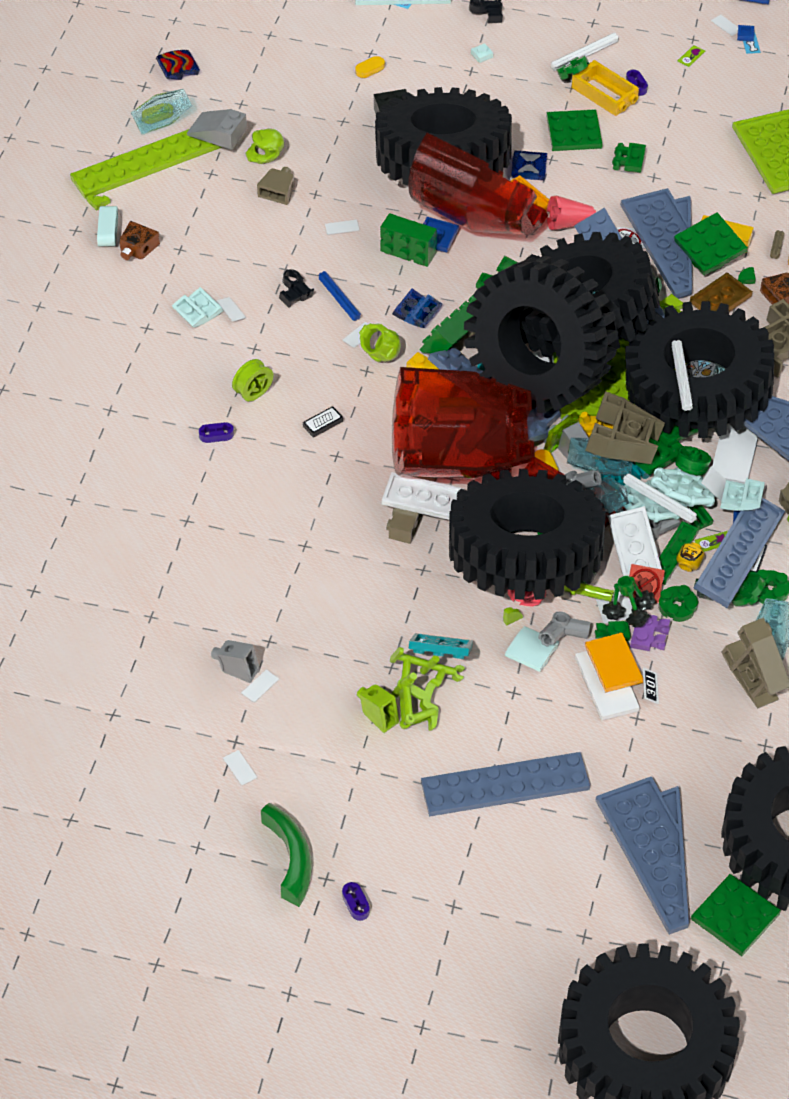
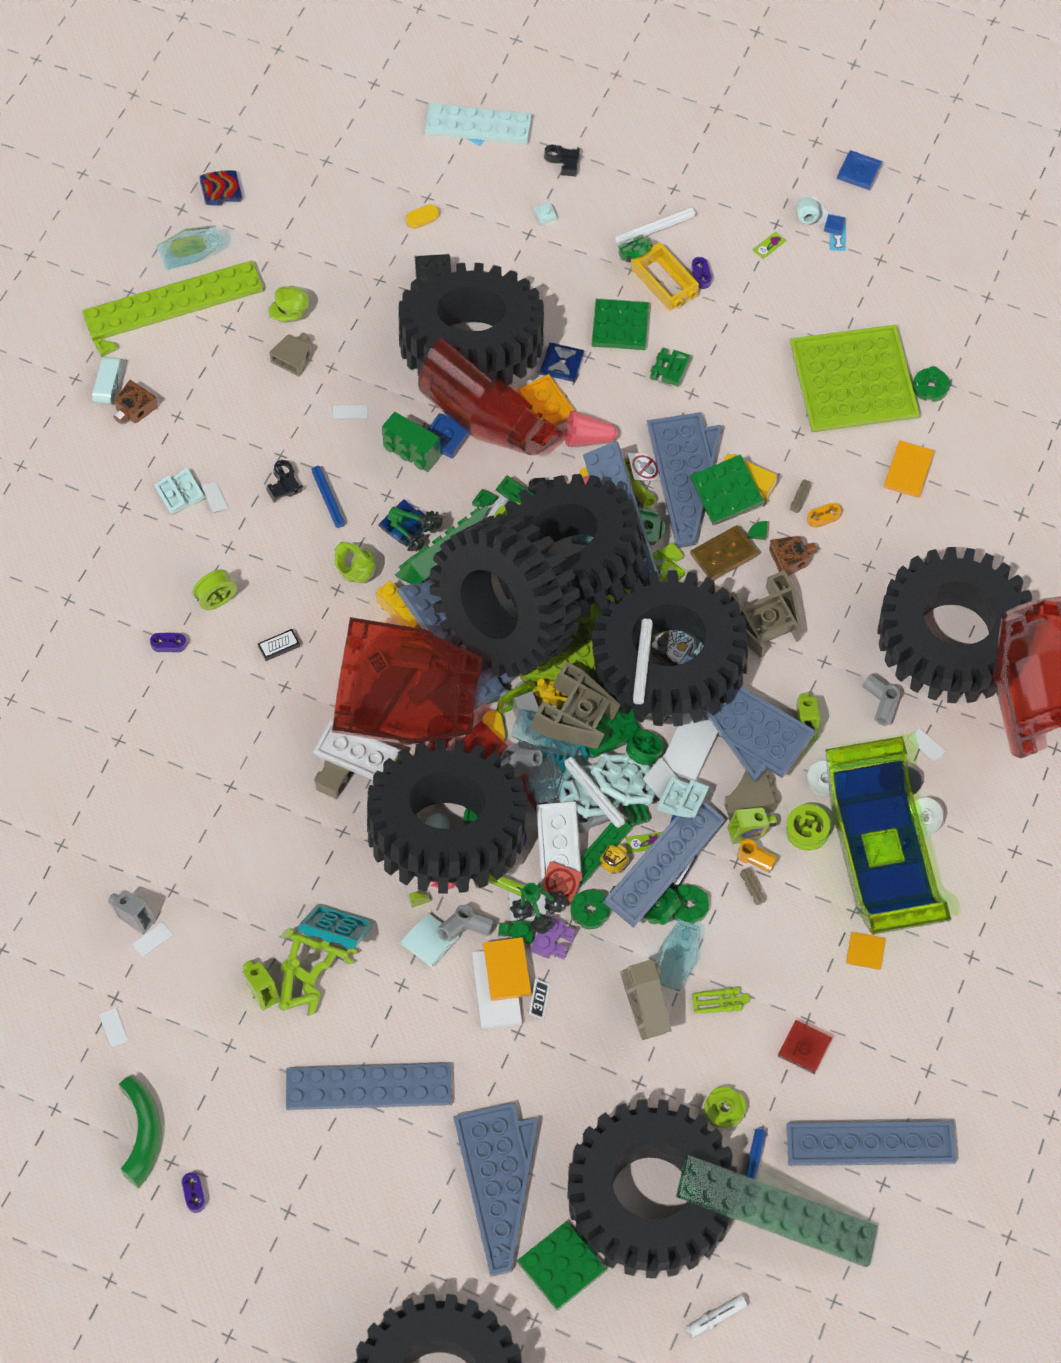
camera: 10 degrees right, 10 degrees up
(219, 127) = (245, 276): light grey slope -> none
(353, 338) = (329, 550): white sticker -> none
(443, 299) = (429, 523): none -> pearl dark grey plant
(719, 24) = (807, 210): none -> light aqua head

